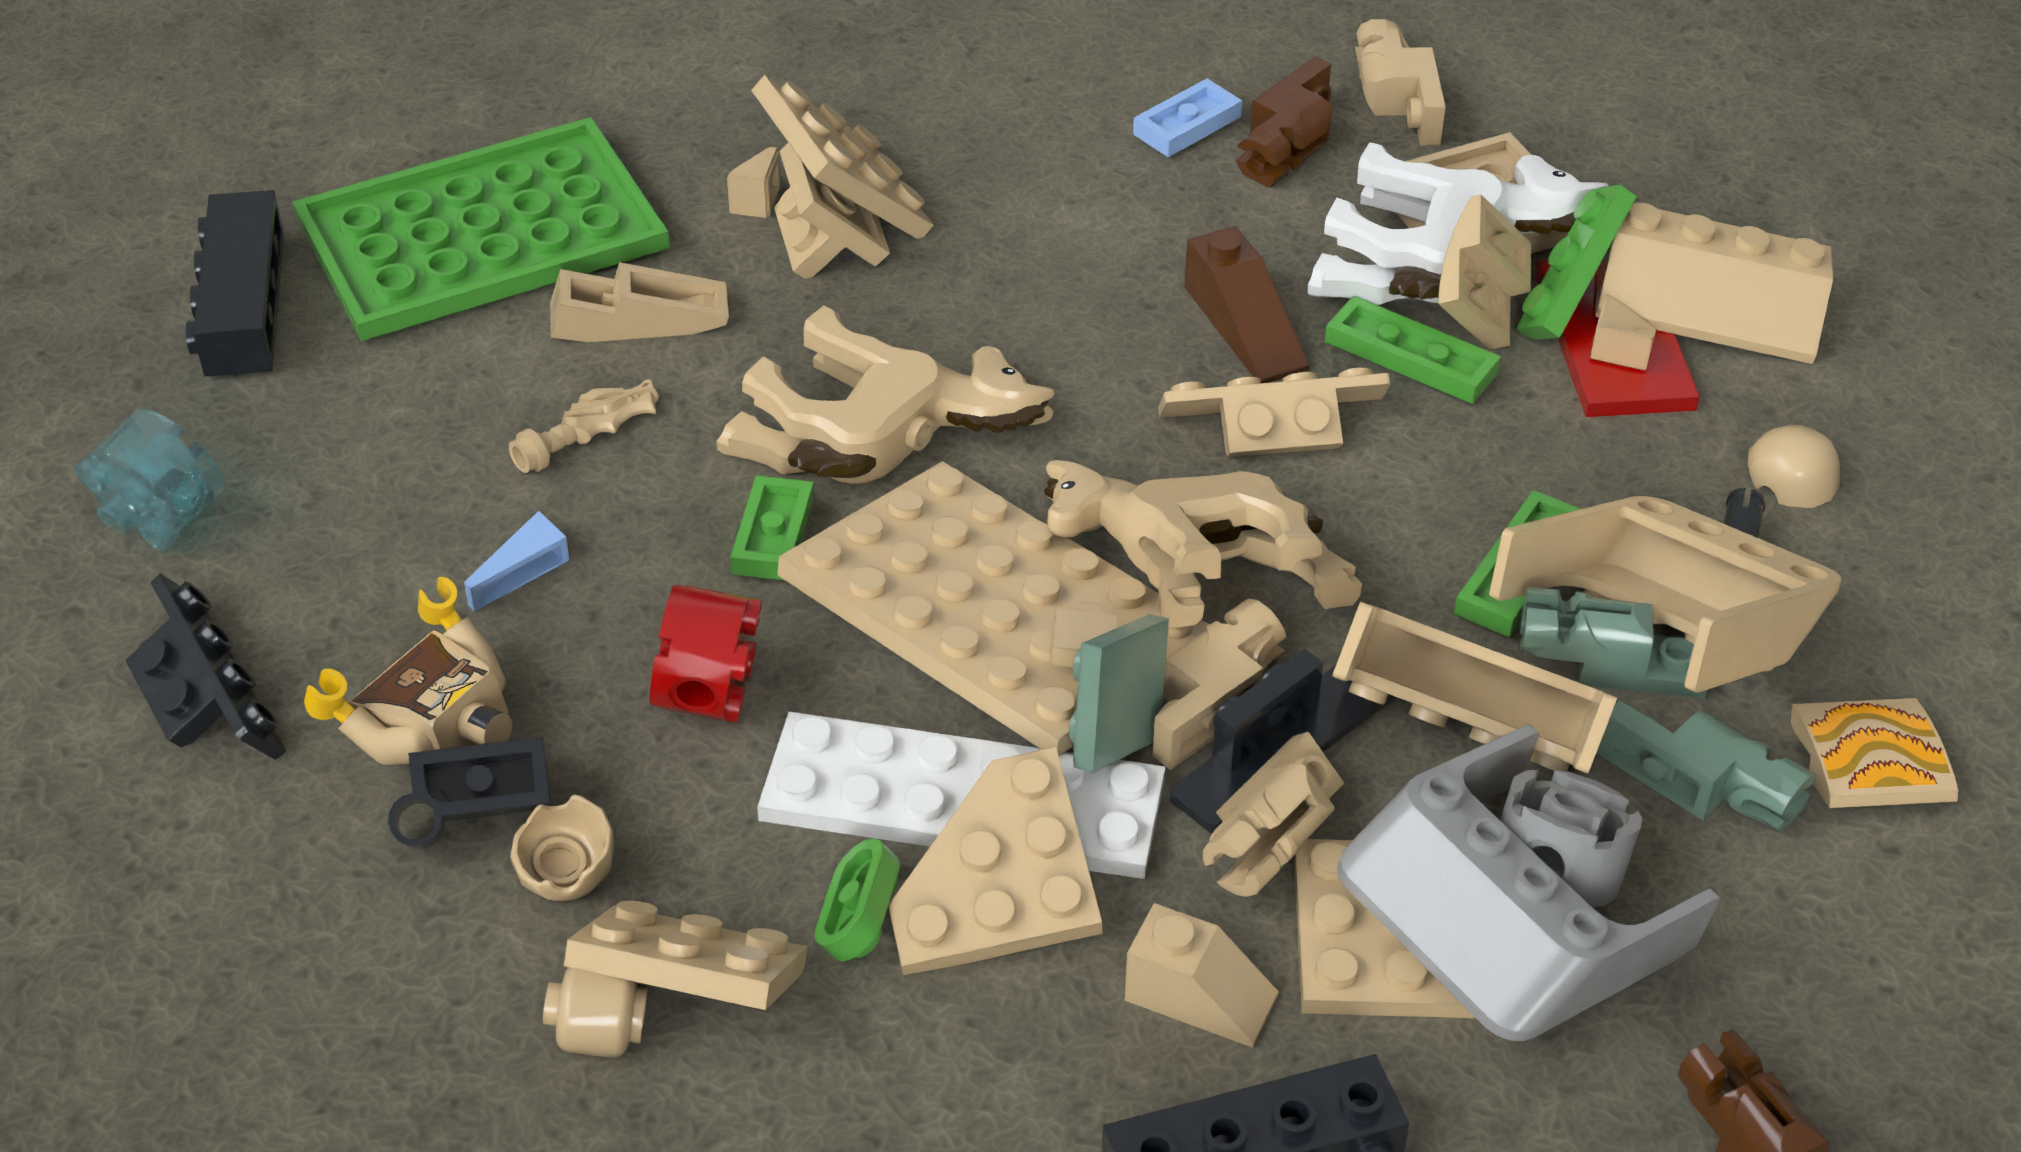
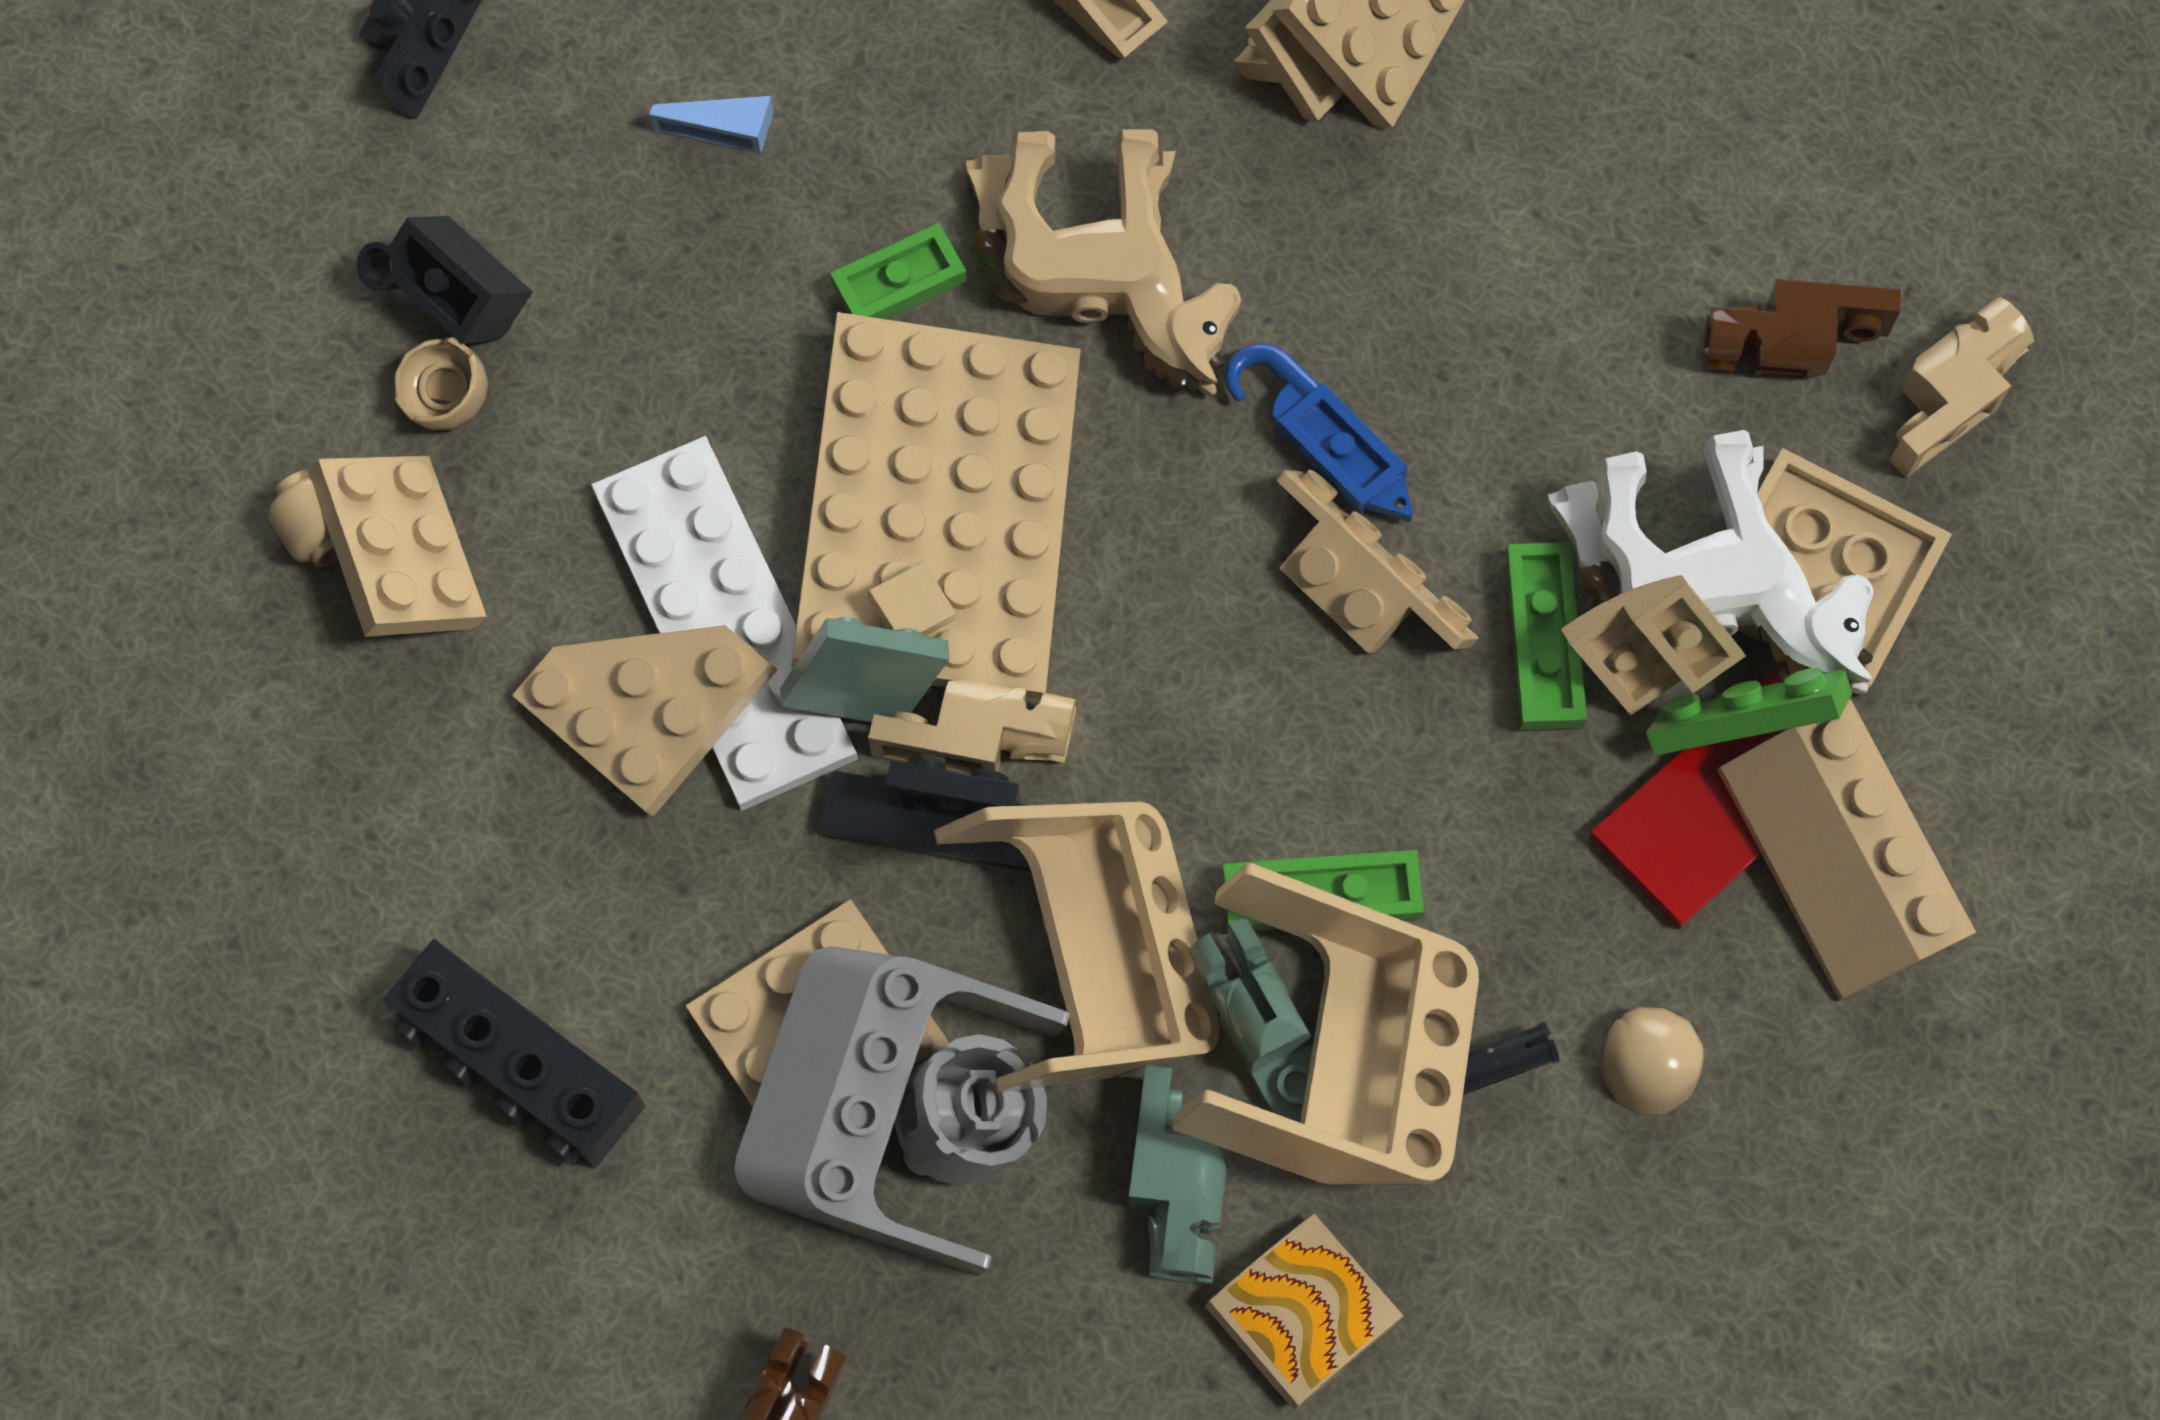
camera: 55 degrees right, 25 degrees up
(429, 699) = (513, 181): torso -> none
(594, 413) = (928, 48): tan piece -> none
(704, 652) = (696, 332): red brick -> none
(857, 901) = (561, 615): bright green plate -> none
(1145, 370) = (1328, 434): none -> blue plate
(1187, 117) = (1734, 233): light blue plate -> none
(1195, 524) = (1135, 599): tan animal -> none
(1197, 976) = (645, 917): tan slope -> none
(1242, 303) = (1480, 459): reddish brown slope -> none
(1273, 815) = (846, 869): tan plate -> none
(1622, 336) = (1700, 810): tan slope -> none

